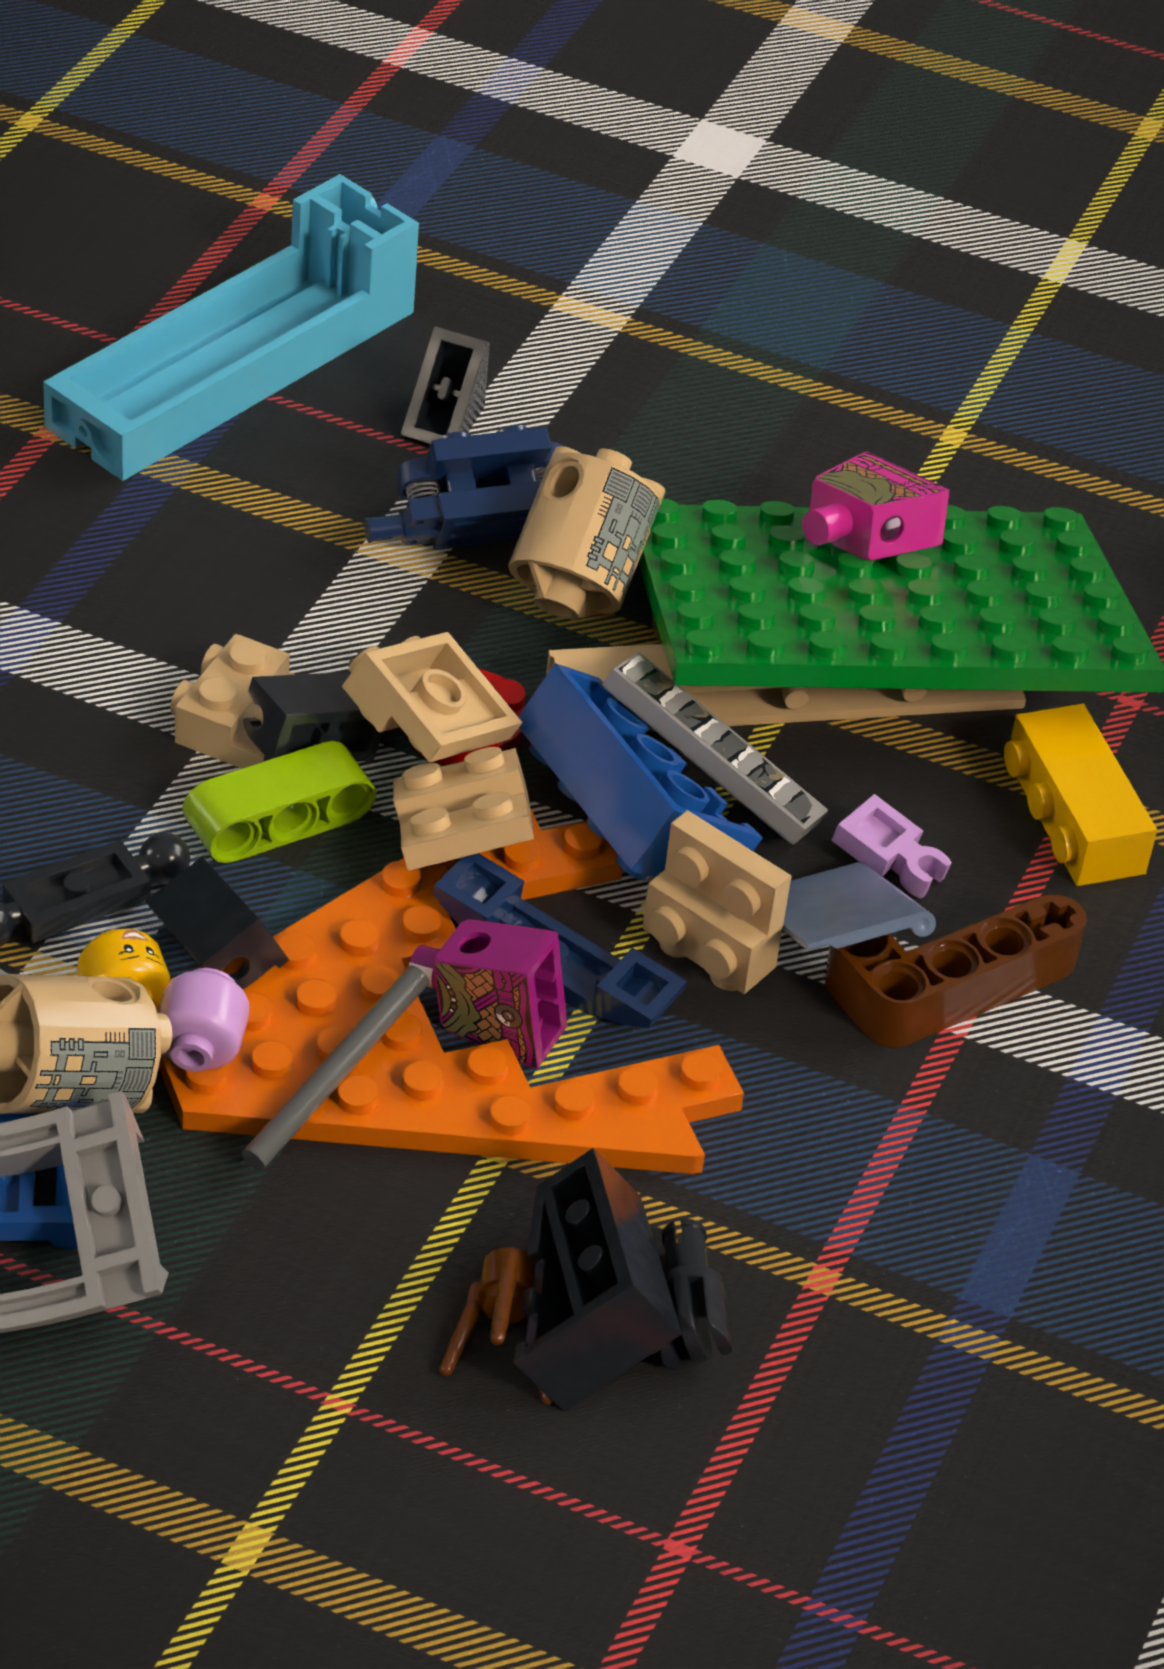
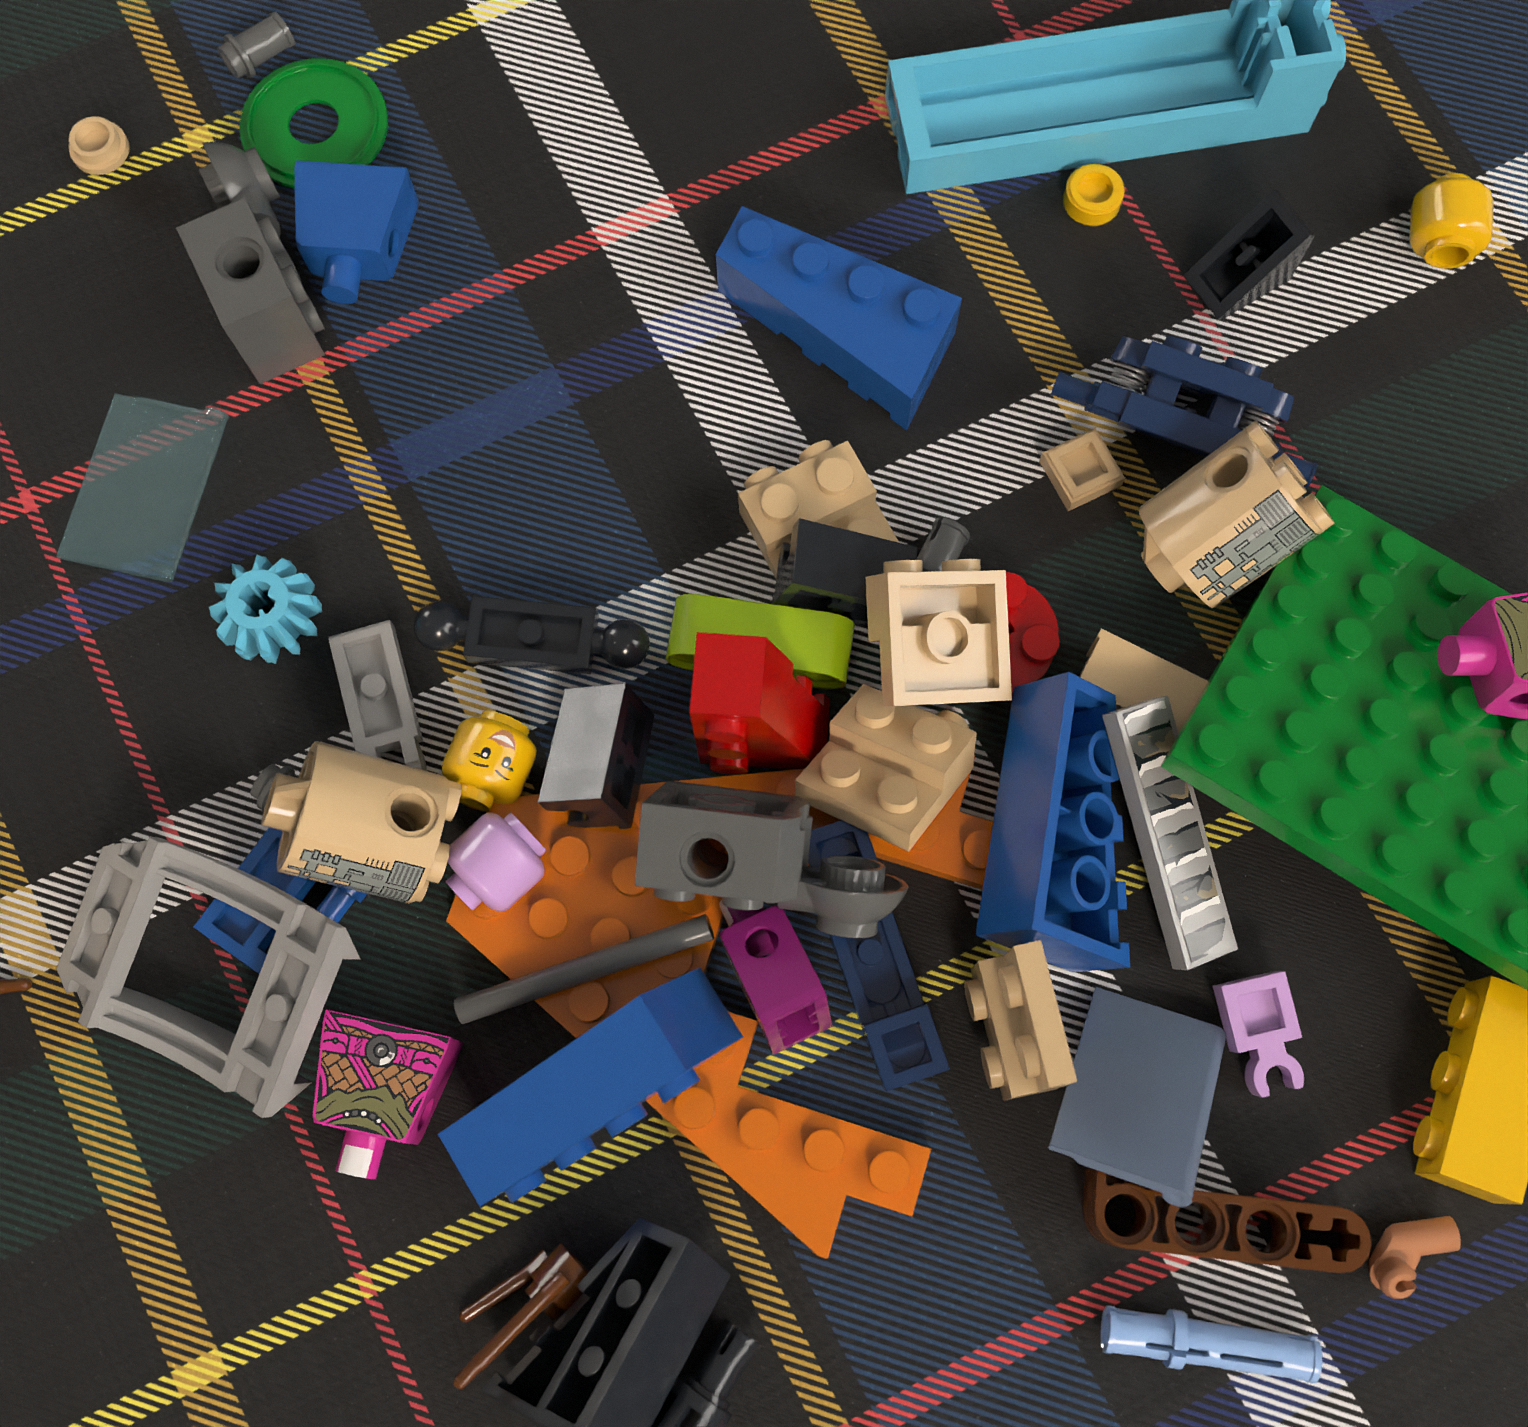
camera: 45 degrees right, 30 degrees up
(144, 560) = (841, 308): none -> blue wedge
(229, 1240) = (378, 1085): none -> torso
(281, 414) = (1093, 194): none -> yellow tile
(317, 814) = (752, 707): none -> red wedge
(414, 883) = (765, 858): none -> dark grey brick
(418, 1117) = (590, 1086): none -> blue wedge
(434, 585) = (1081, 469): none -> tan tile
(576, 310) = (1451, 221): none -> yellow head
(1029, 1049) = (1210, 1344): none -> light blue pin
(1110, 920) = (1401, 1247): none -> nougat arm

